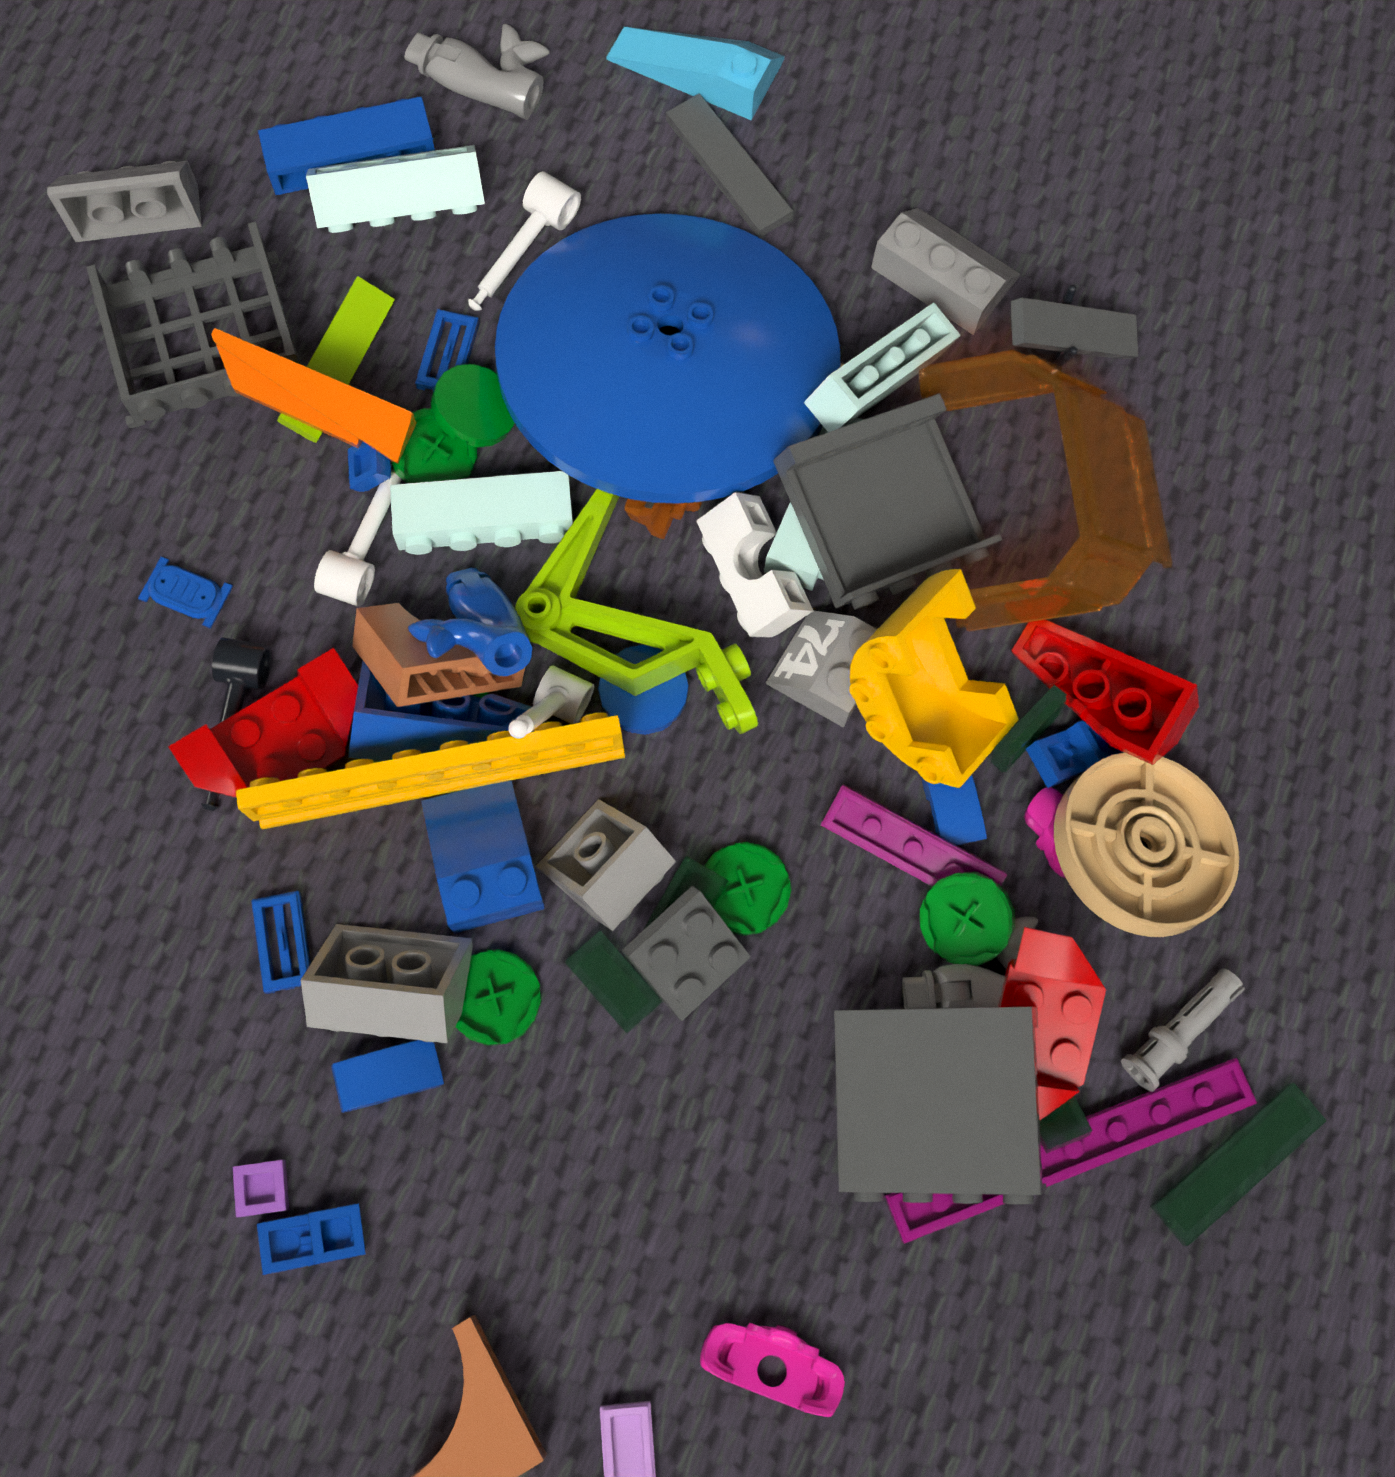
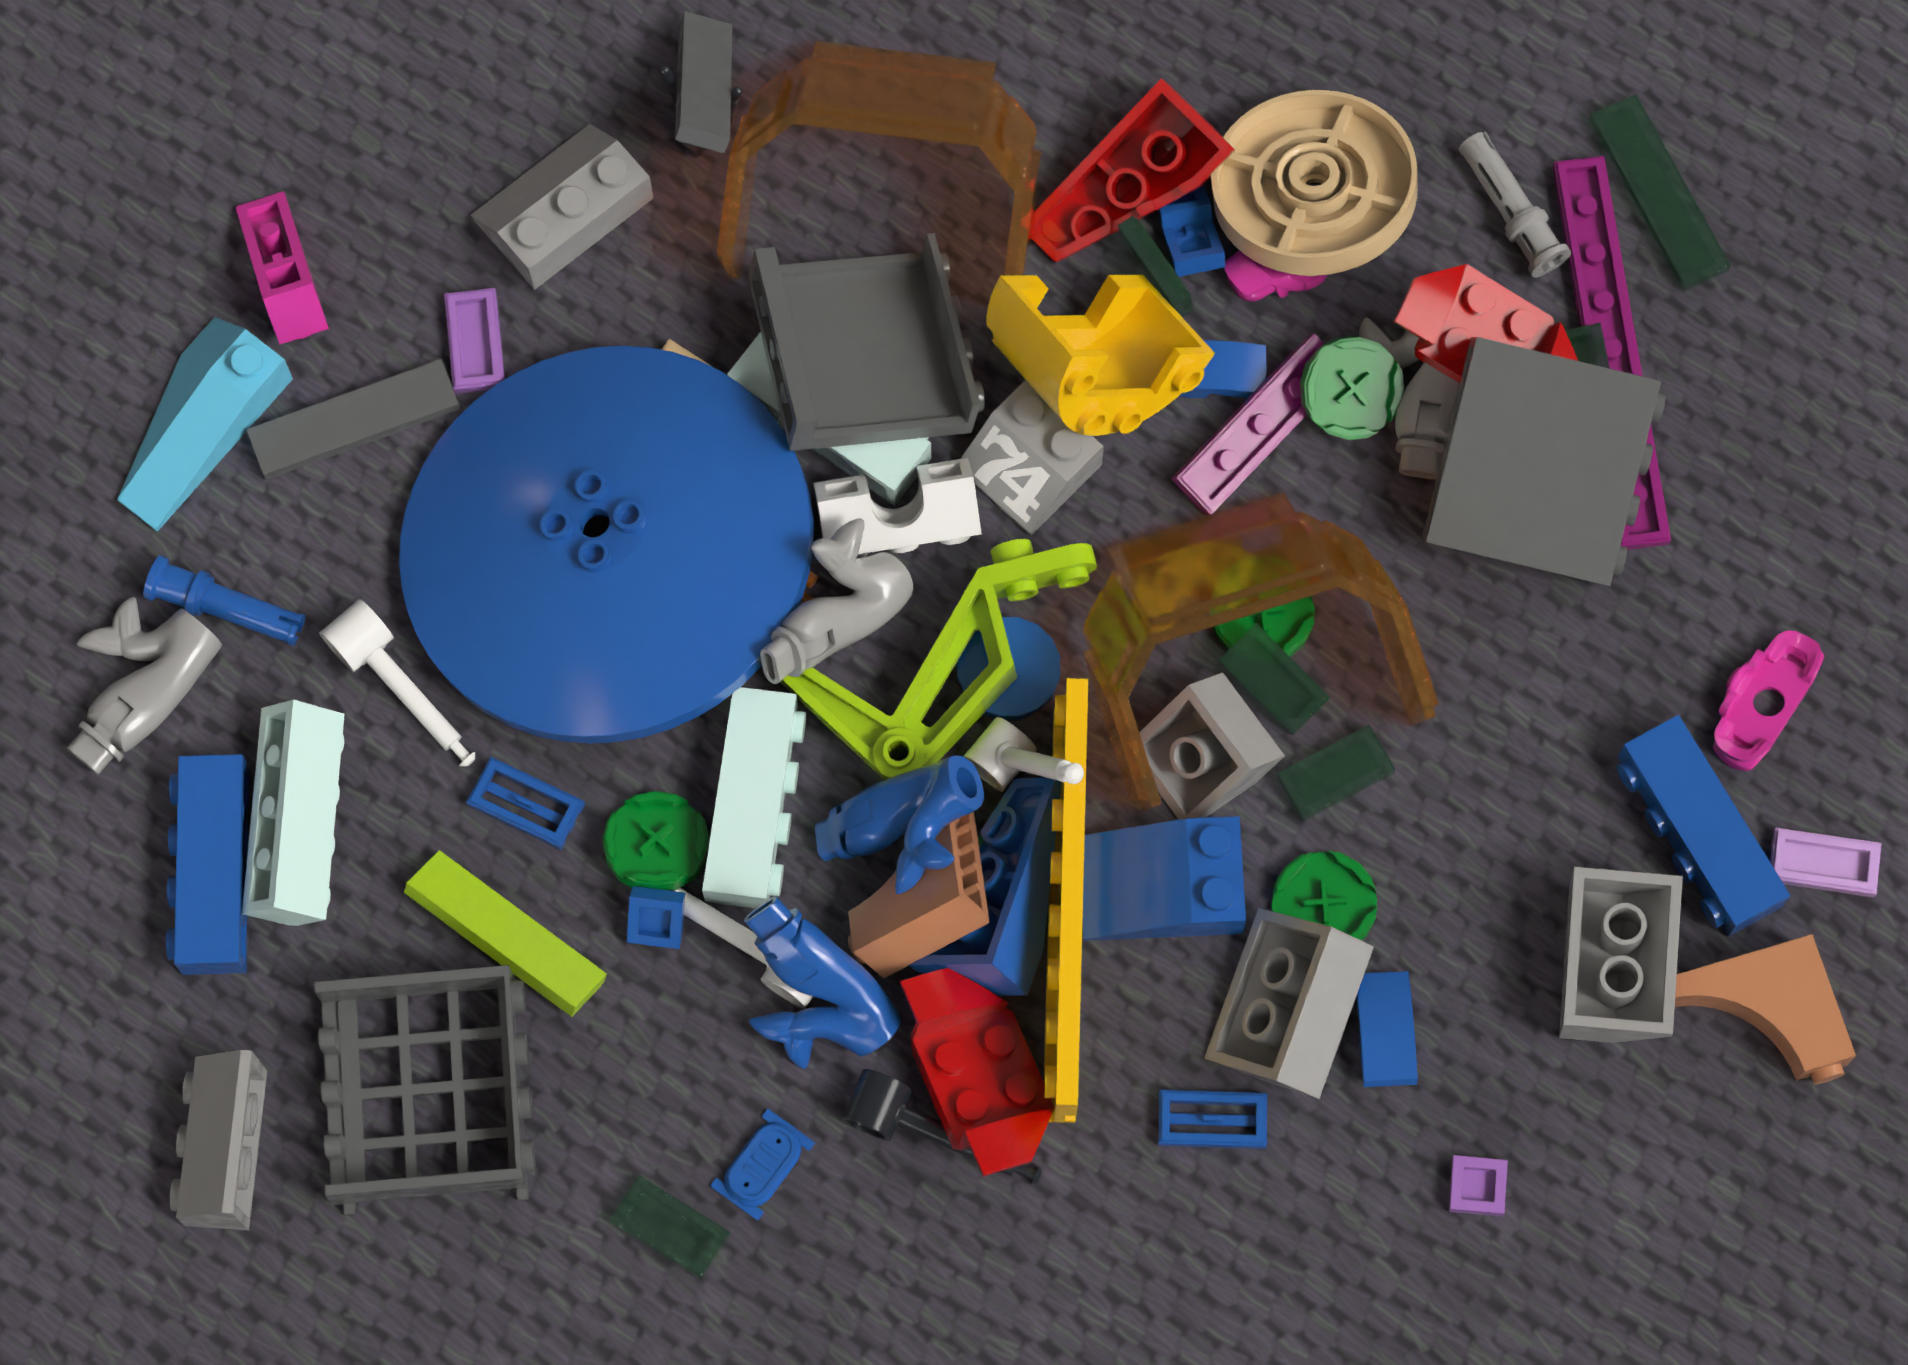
camera: 70 degrees left, 0 degrees up
(120, 533) = (670, 1227): none -> clear green tile
(310, 1239) = (1542, 1142): blue slope -> none
(315, 398) = (579, 950): orange wedge -> none
(320, 616) = (821, 969): none -> blue piece
(471, 406) = (613, 782): green tile -> none
(484, 1275) = (1620, 955): none -> light grey slope
(560, 93) = (200, 594): none -> blue pin
(632, 1332) = (1702, 826): none -> blue brick
(637, 531) = (832, 623): none -> light grey piece
(686, 953) = (1326, 683): dark grey plate -> none
(757, 838) = (1220, 573): none -> clear orange piece
(816, 233) = (474, 340): none -> medium lavender tile
(829, 84) = (281, 268): none -> dark pink slope
(881, 368) = (700, 304): light aqua brick -> none

